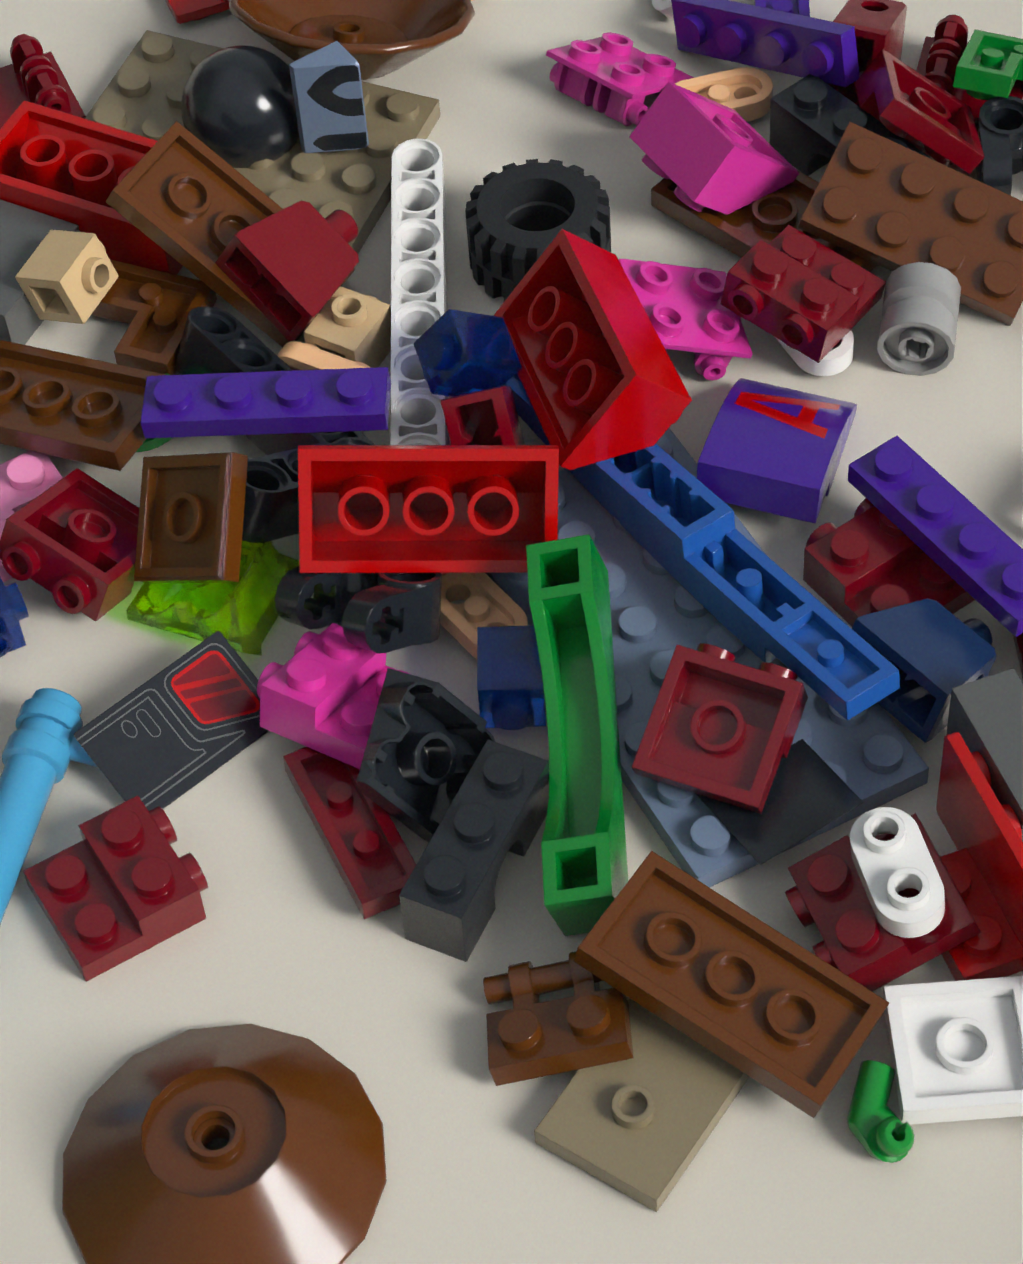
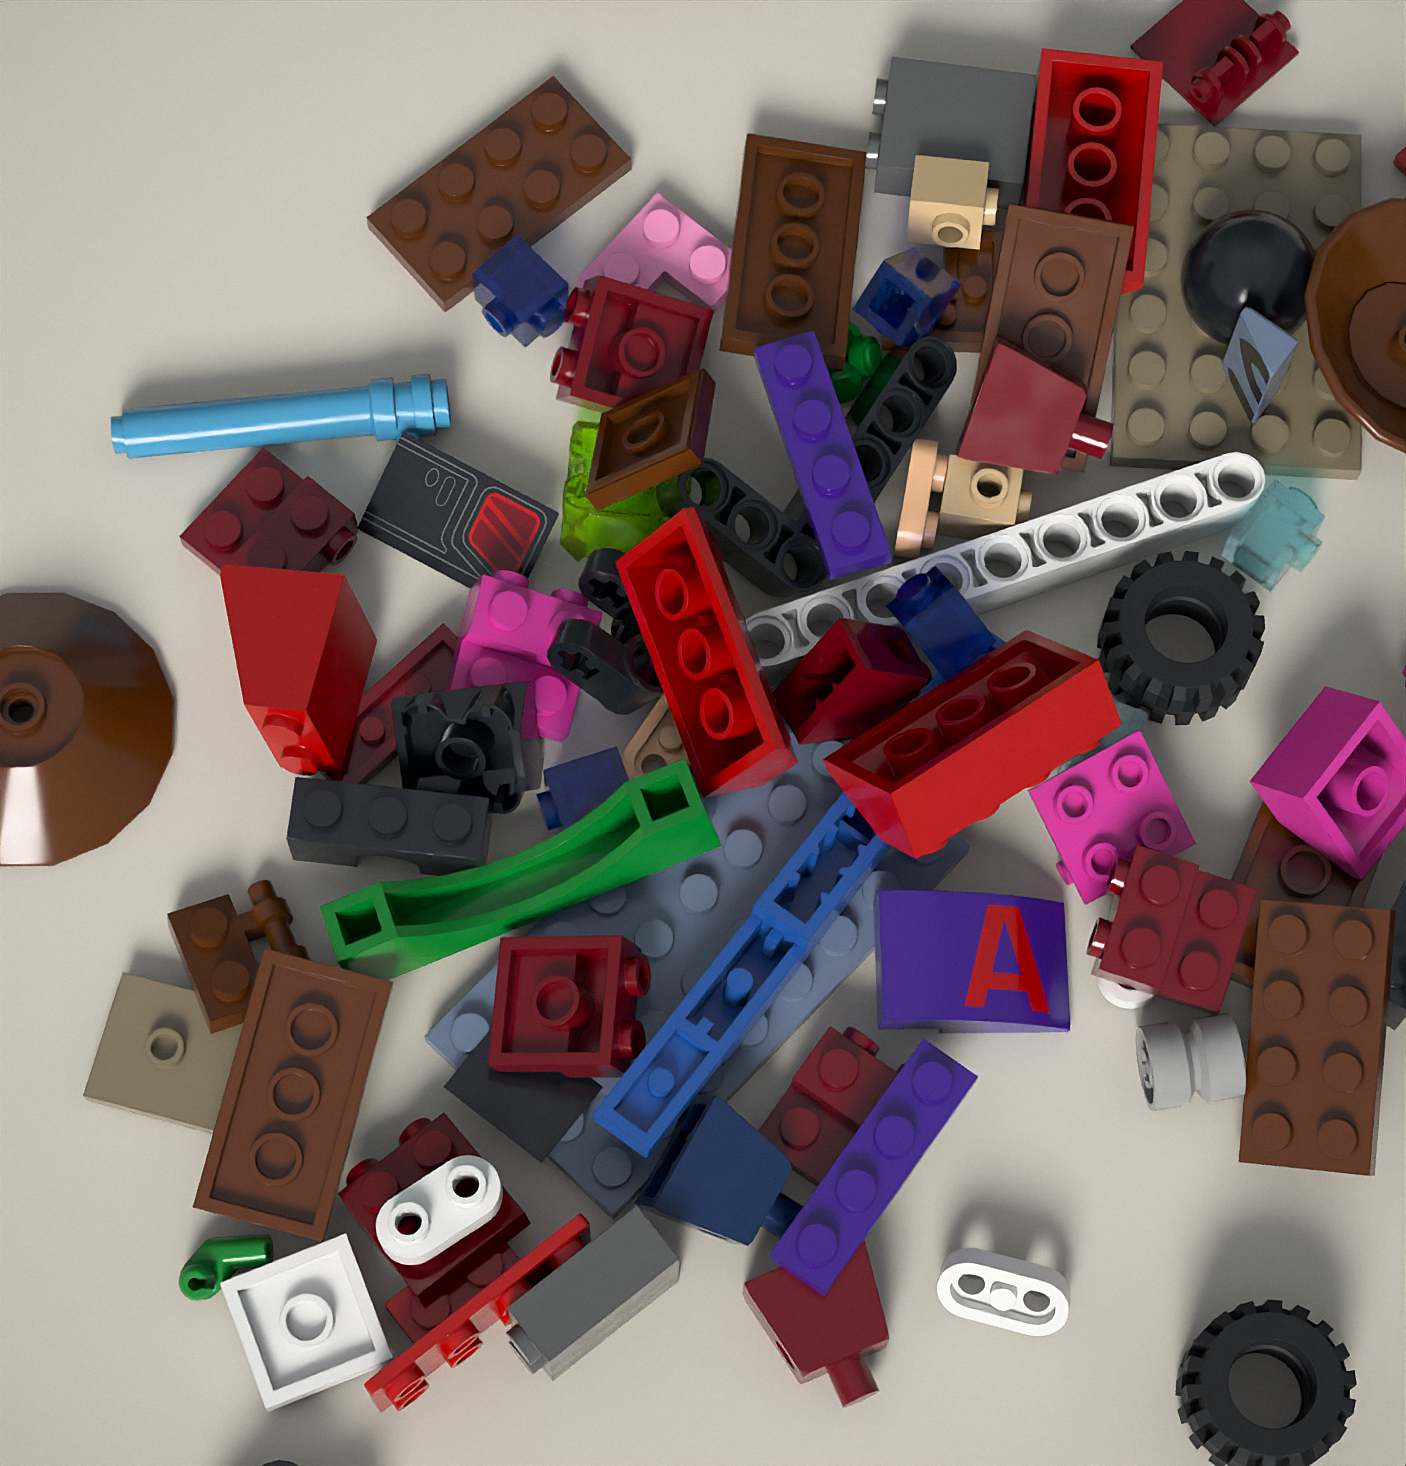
camera: 65 degrees right, 20 degrees up
(147, 316) = (906, 296): none -> clear blue brick
(278, 861) = (299, 660): none -> red slope
(469, 154) = (1275, 535): none -> clear light blue brick

